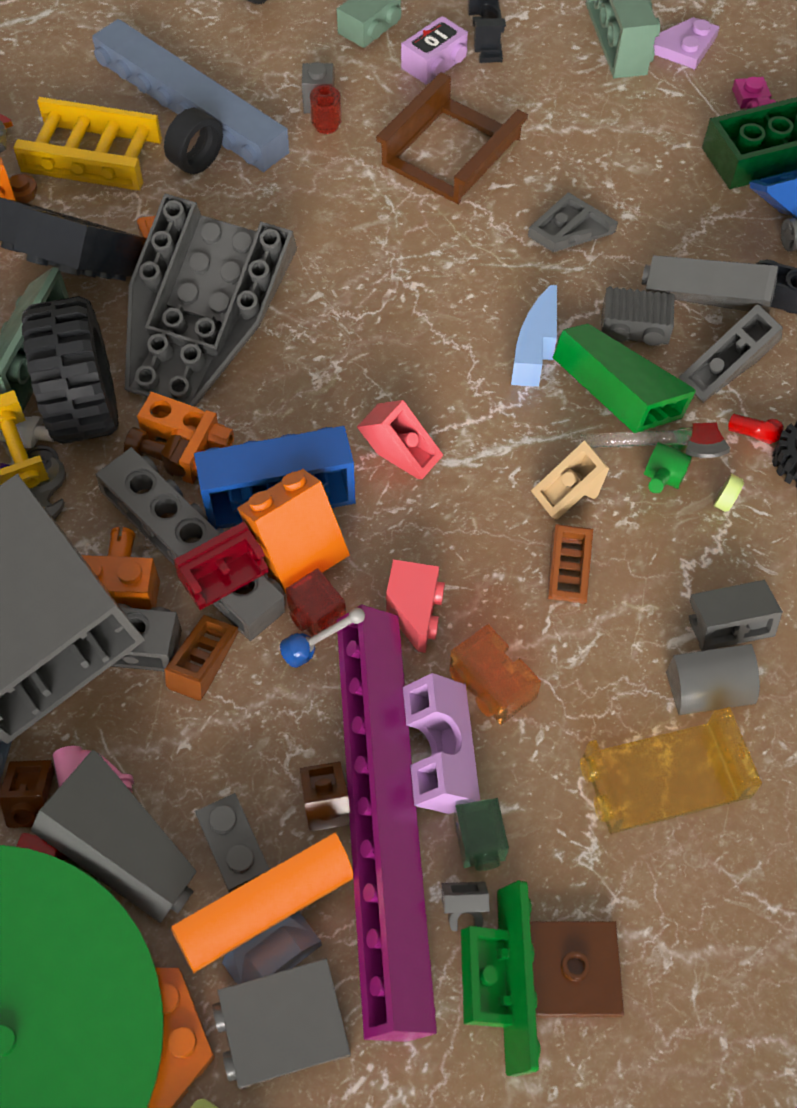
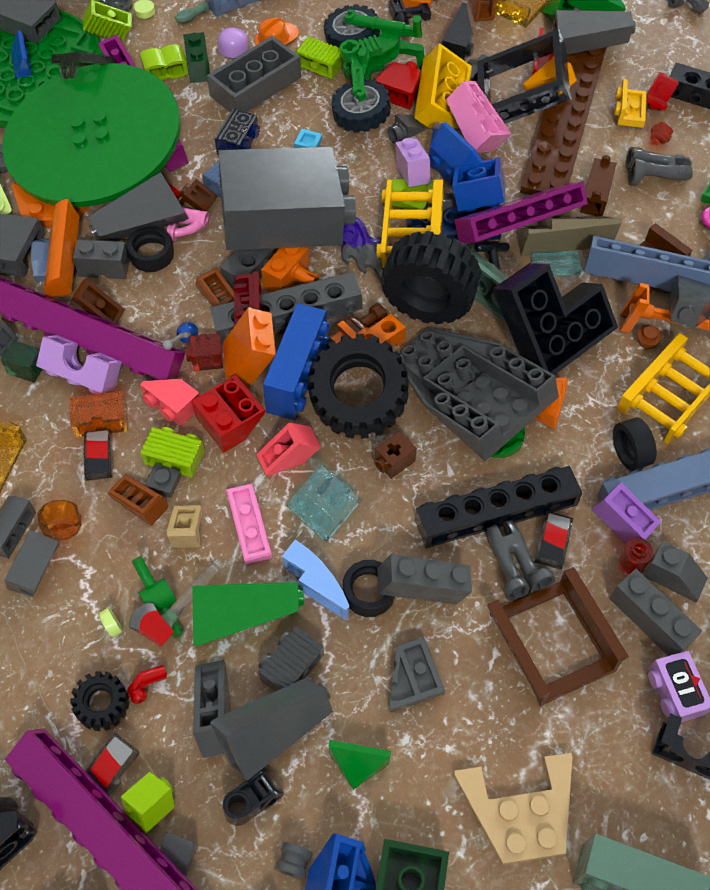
camera: 120 degrees right, 0 degrees up
(168, 764) = (150, 235): none -> black tyre
(284, 354) = (351, 354): none -> black tyre
(288, 117) = (626, 514): none -> medium lavender panel
(337, 337) = (394, 455): none -> reddish brown brick
(342, 229) = (560, 481): none -> black brick
(351, 174) = (553, 540): none -> slope
(376, 82) = (655, 614): none -> dark grey brick
(378, 206) = (514, 543): none -> dark grey piece
(394, 518) = (228, 412): none -> red slope
(444, 370) = (324, 502): none -> clear light blue plate
(477, 237) = (424, 579): none -> dark grey brick
(486, 555) = (173, 450): none -> lime brick
(508, 274) = (359, 607): none -> black tyre
(514, 439) = (249, 524): none -> bright pink tile
(526, 553) = (163, 480): none -> dark grey plate
(548, 639) = (98, 454): none -> slope
(626, 108) = (524, 824): none -> tan wing
(666, 613) = (59, 519): none -> clear orange hair
(676, 228) = (357, 761): none -> green slope

